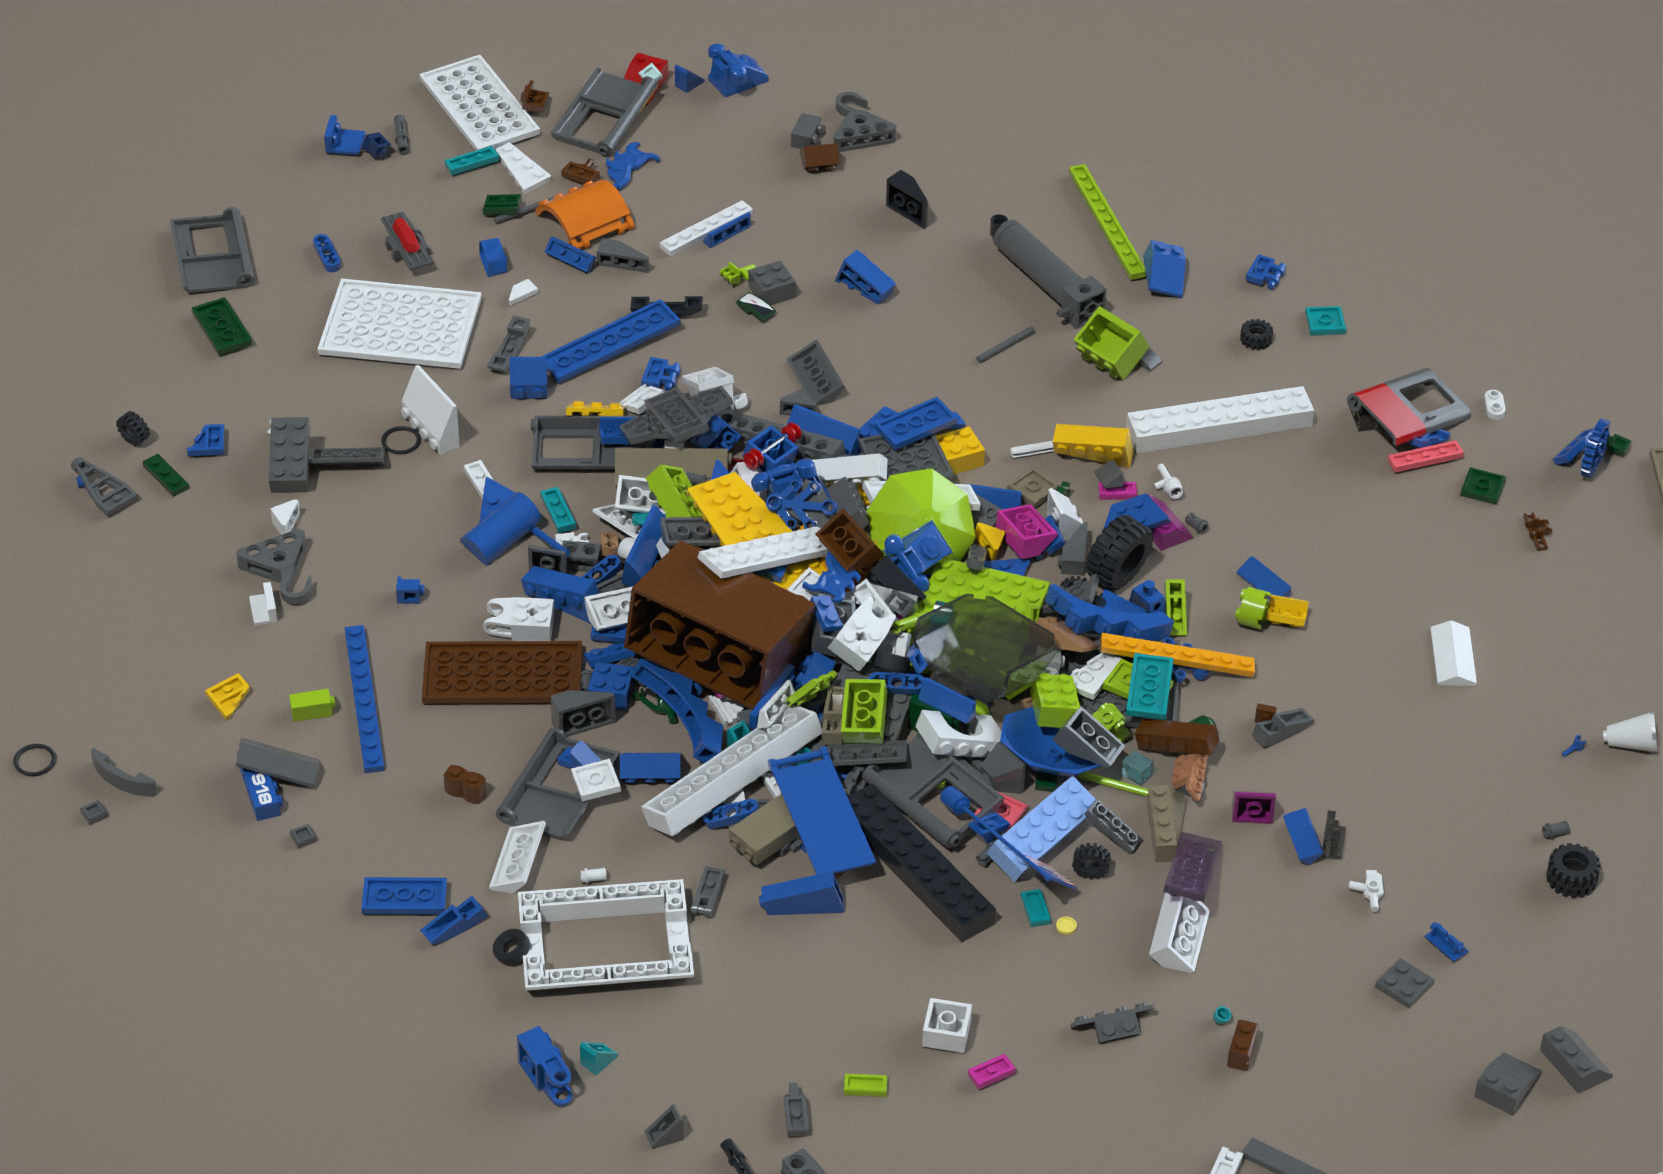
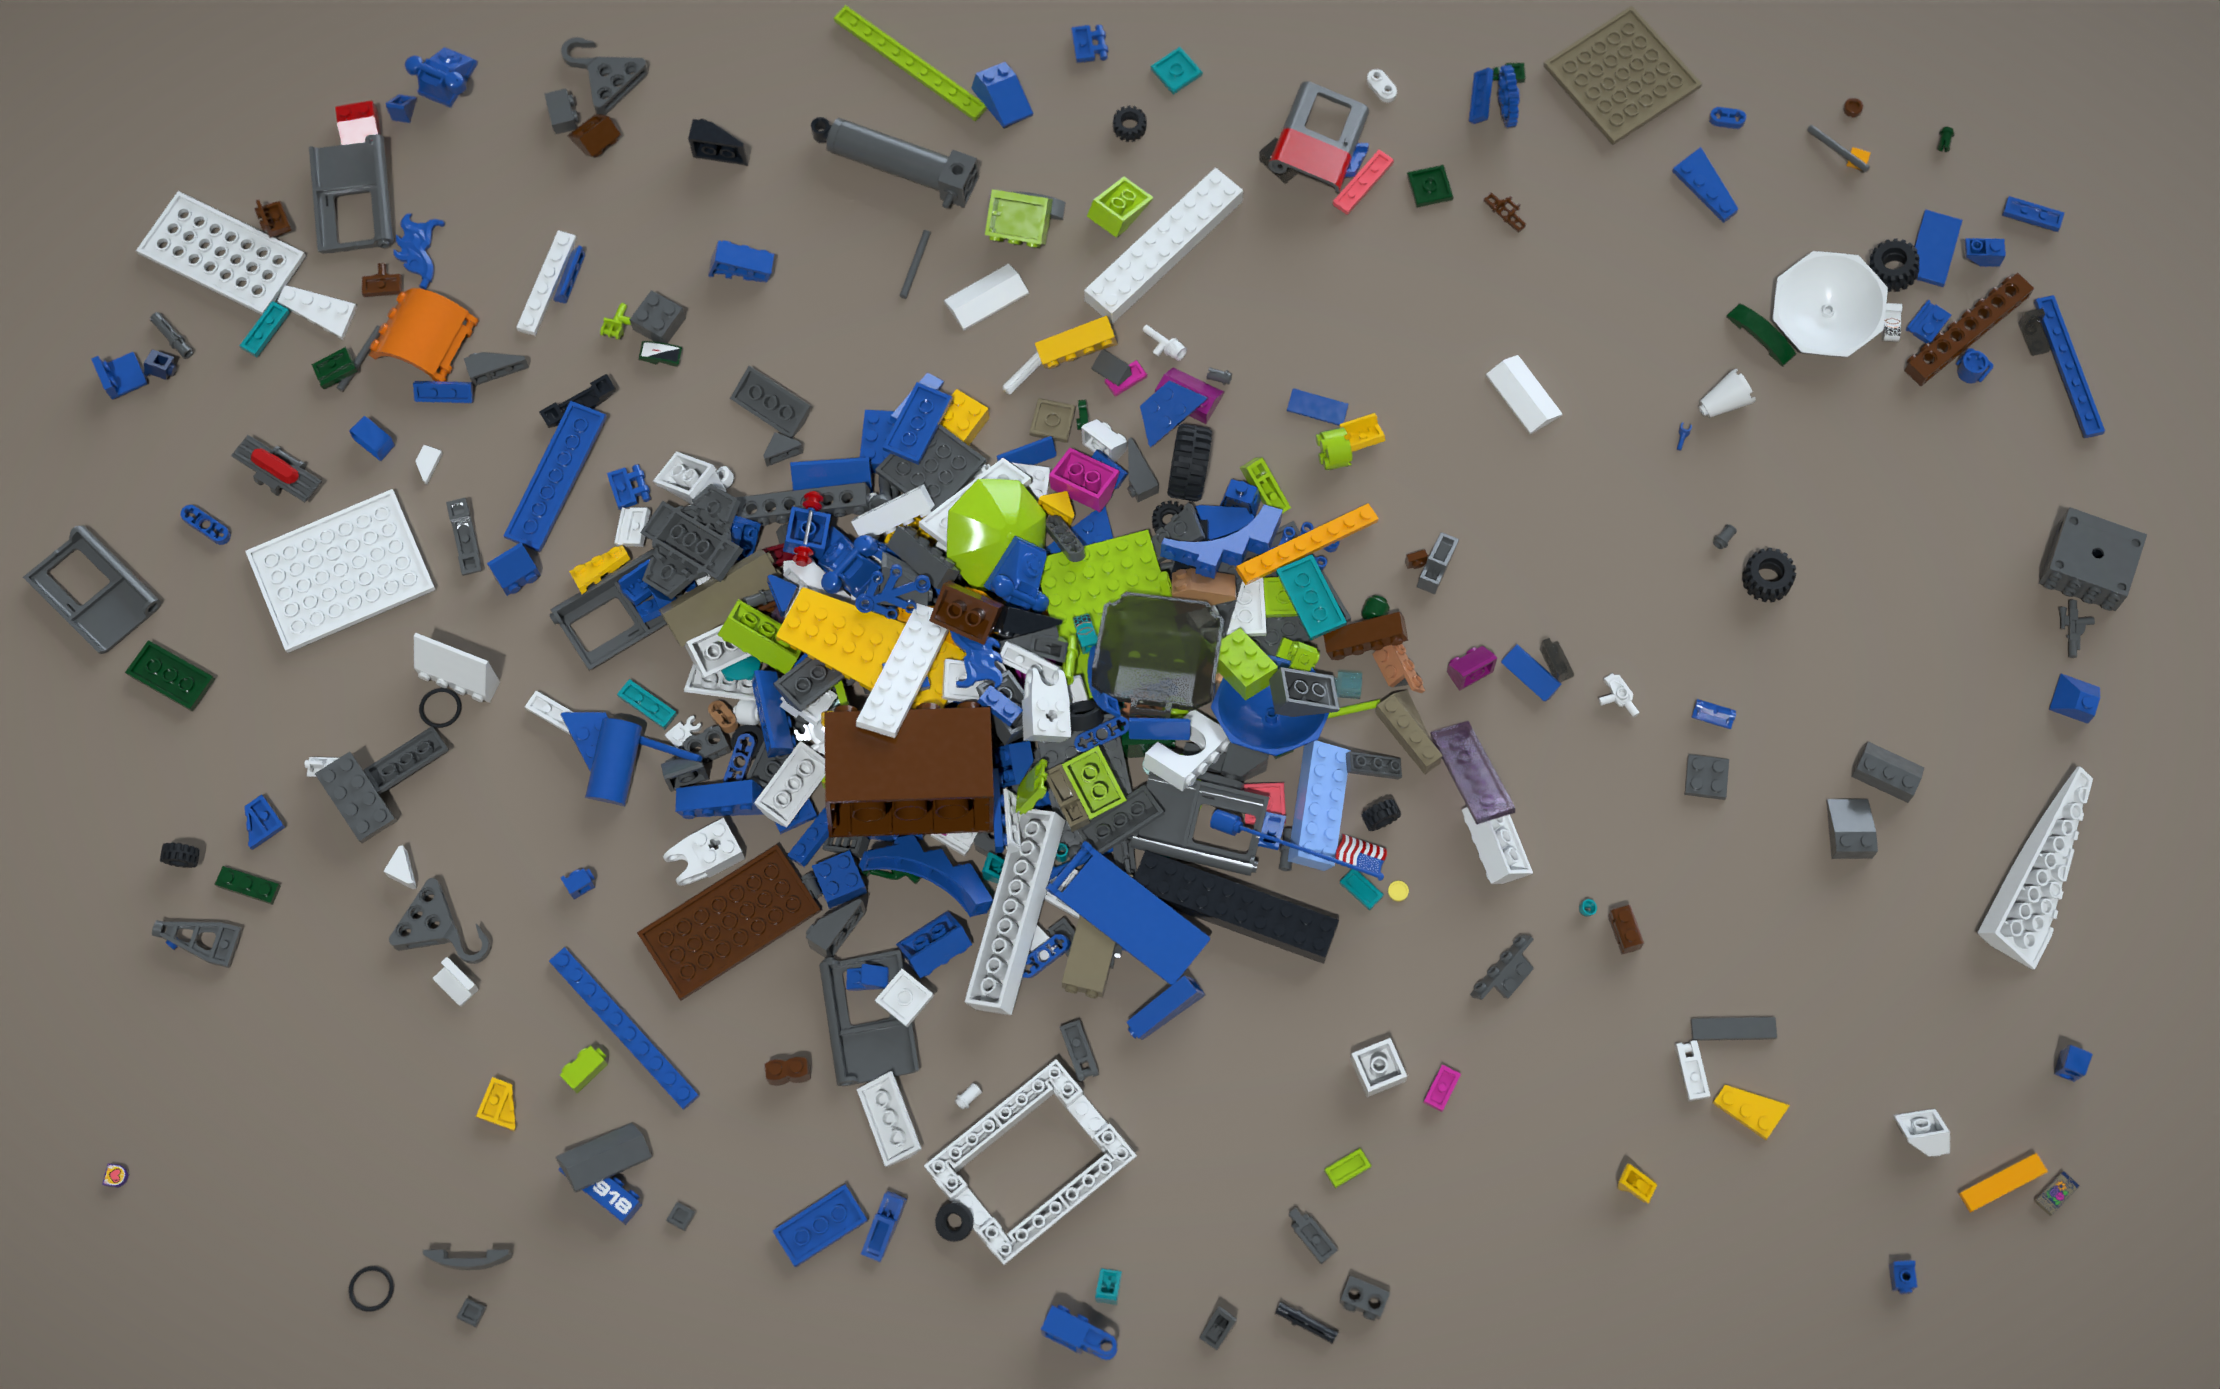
camera: 30 degrees left, 25 degrees up
(608, 449) = (650, 609): none -> blue slope
(651, 71) = (367, 126): light aqua tile -> none
(1046, 390) = (986, 296): none -> white slope
(1202, 380) = (1119, 206): none -> lime slope

